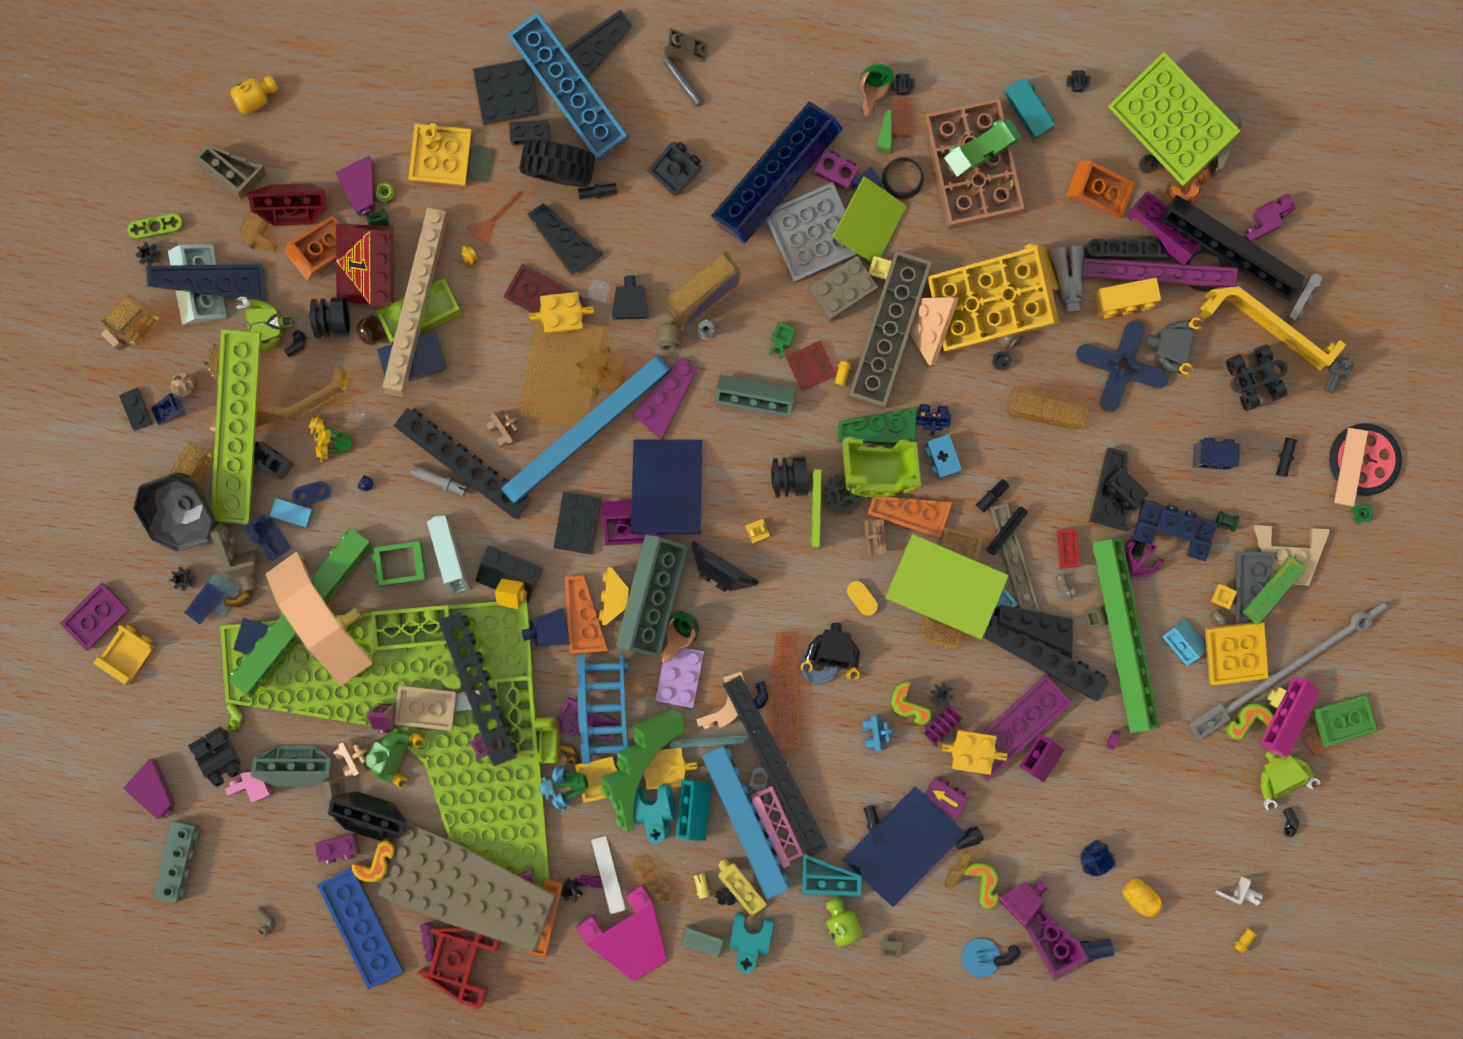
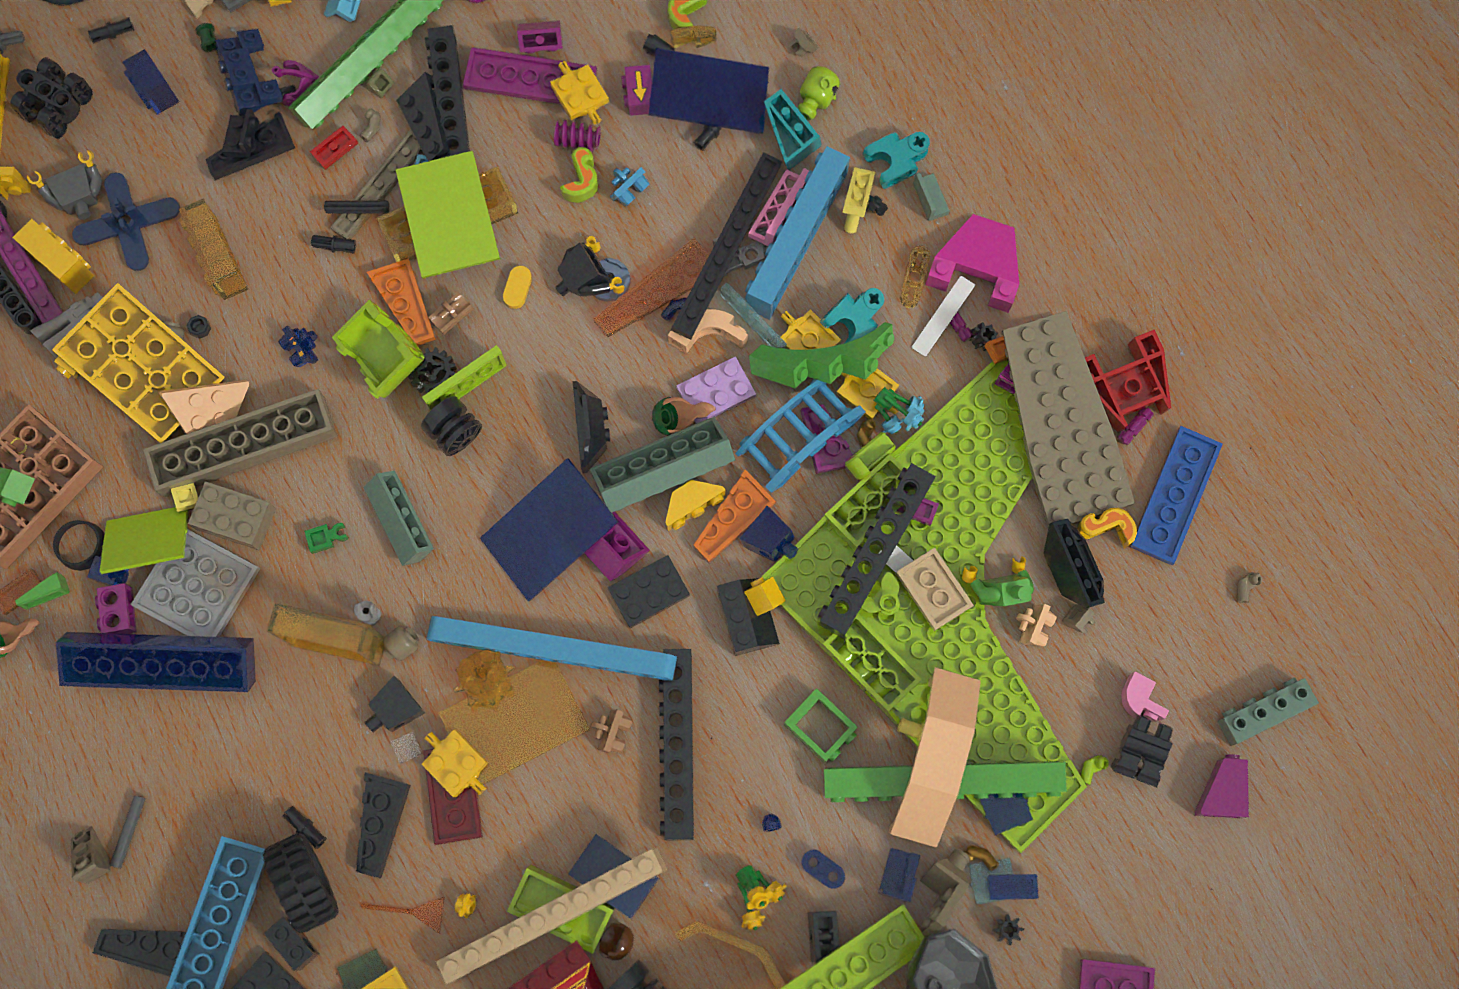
camera: 135 degrees left, 10 degrees down
(125, 654) = (1125, 926): yellow panel -> none
(291, 512) = (858, 875): medium azure tile -> none
(292, 766) = (1089, 673): sand green wedge -> none
(337, 847) = (1126, 571): magenta brick -> none
(382, 717) = (973, 619): magenta slope -> none
(446, 483) = (711, 753): light grey pin -> none
(448, 555) = (774, 687): light aqua slope -> none
(664, 400) = (469, 601): magenta wing -> none
(675, 167) = (224, 767): black plate -> none
(693, 810) = (825, 285): teal brick -> none
(702, 886) = (886, 229): light yellow pin -> none
(757, 531) = (527, 423): yellow tile -> none
(810, 366) = (331, 492): clear red tile -> none
(842, 373) = (316, 457): yellow pin -> none
(880, 428) = (344, 384): green wing -> none
(945, 446) = (329, 299): dark azure brick -> none
(947, 695) = (550, 157): black gear -> none

